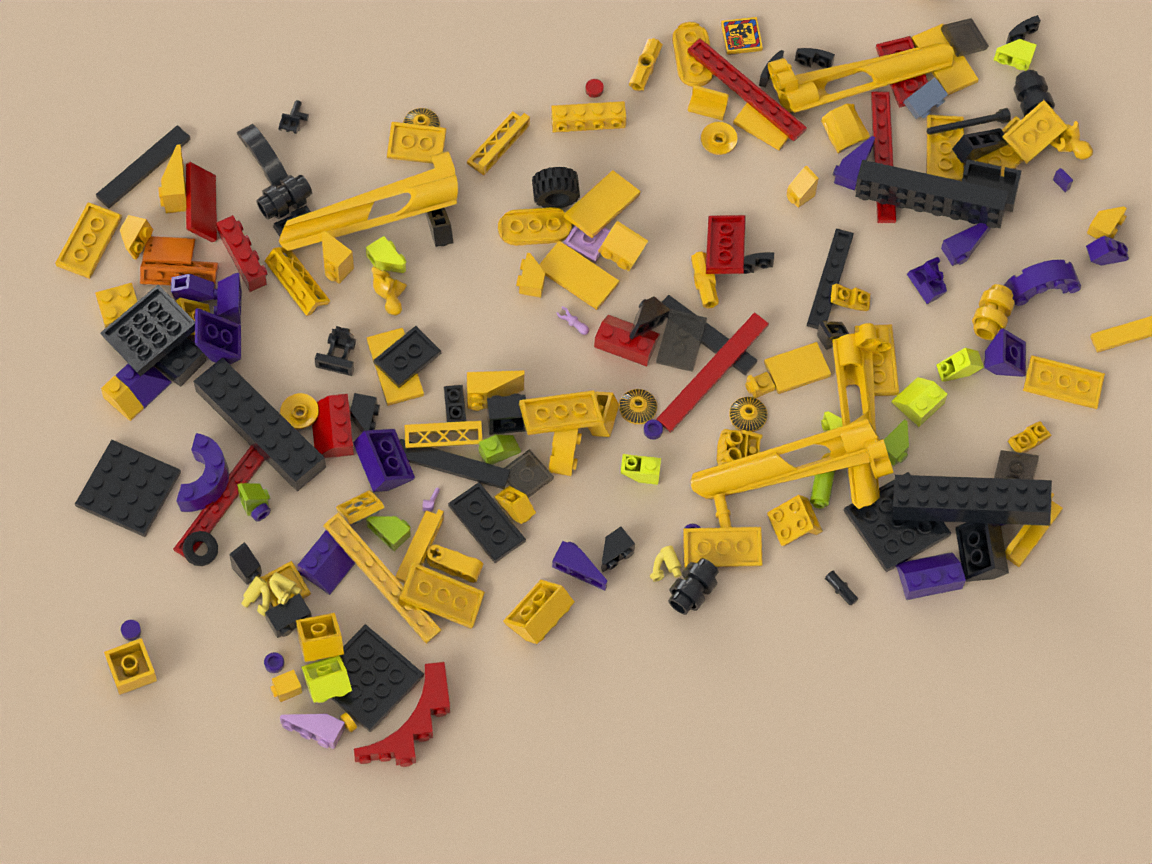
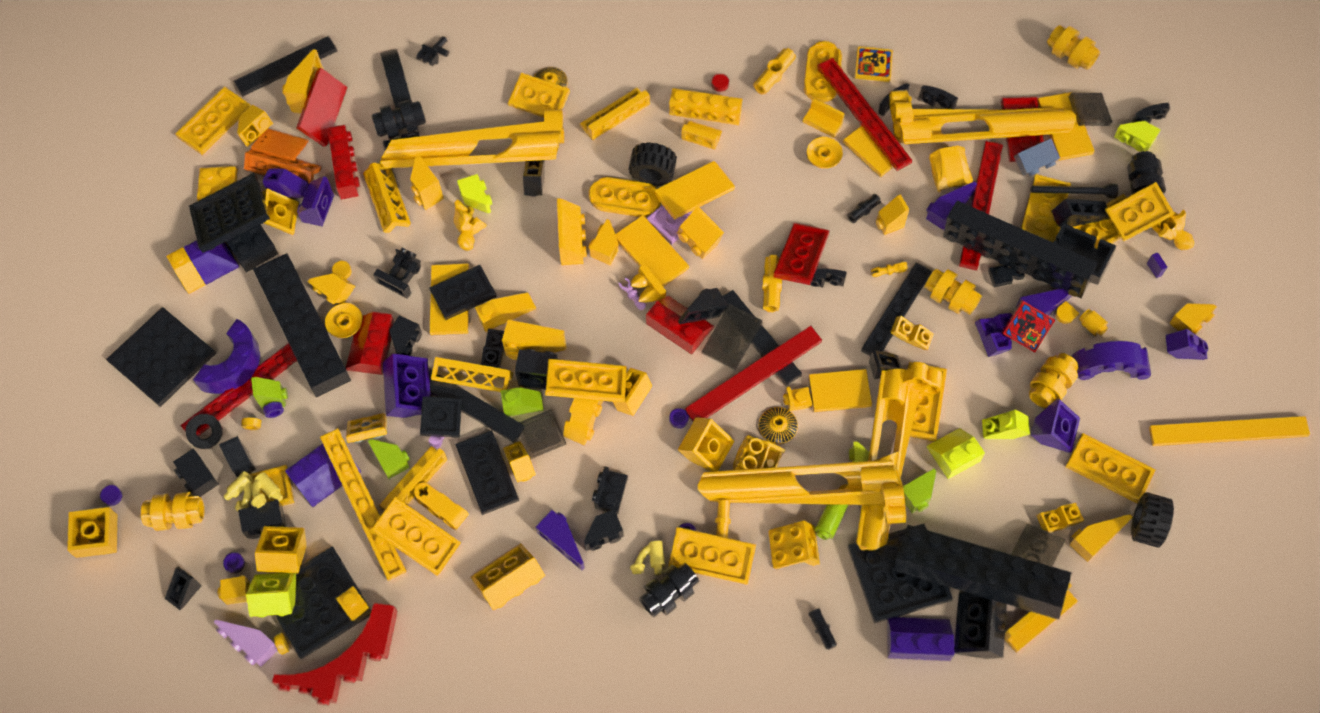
camera: 20 degrees right, 0 degrees up
(207, 589) = (195, 472): none -> black brick
(211, 625) = (163, 511): none -> yellow piece
(217, 337) = (286, 232): dark purple slope -> none
(234, 696) = (181, 588): none -> black slope
(244, 530) = (251, 423): none -> yellow tile
(277, 362) = (342, 268): none -> yellow tile
(278, 380) = (333, 286): none -> yellow slope
(405, 668) = (352, 603): none -> yellow brick
(427, 480) = (440, 417): none -> black tile
(452, 365) = (500, 310): none -> yellow slope
(495, 275) = (571, 233): none -> yellow slope
(591, 146) = (701, 134): none -> yellow panel
(592, 310) = (645, 278): none -> yellow tile
(610, 511) = (610, 490): none -> black bracket
(634, 413) = (674, 399): dish -> none
(641, 468) = (653, 455): neon yellow slope -> none
(687, 447) = (706, 444): none -> yellow slope
(772, 186) = (864, 208): none -> black pin
(811, 241) = (896, 268): none -> yellow piece
(892, 253) = (959, 295): none -> yellow piece
(922, 222) = (1004, 275): none -> black plate
(957, 266) = (1028, 326): none -> tile
(989, 245) = (1066, 313): none -> yellow tile
(1017, 248) = (1094, 322): none -> yellow brick
(1065, 446) = (1096, 536): none -> yellow slope
(1111, 419) = (1152, 519): none -> black tyre

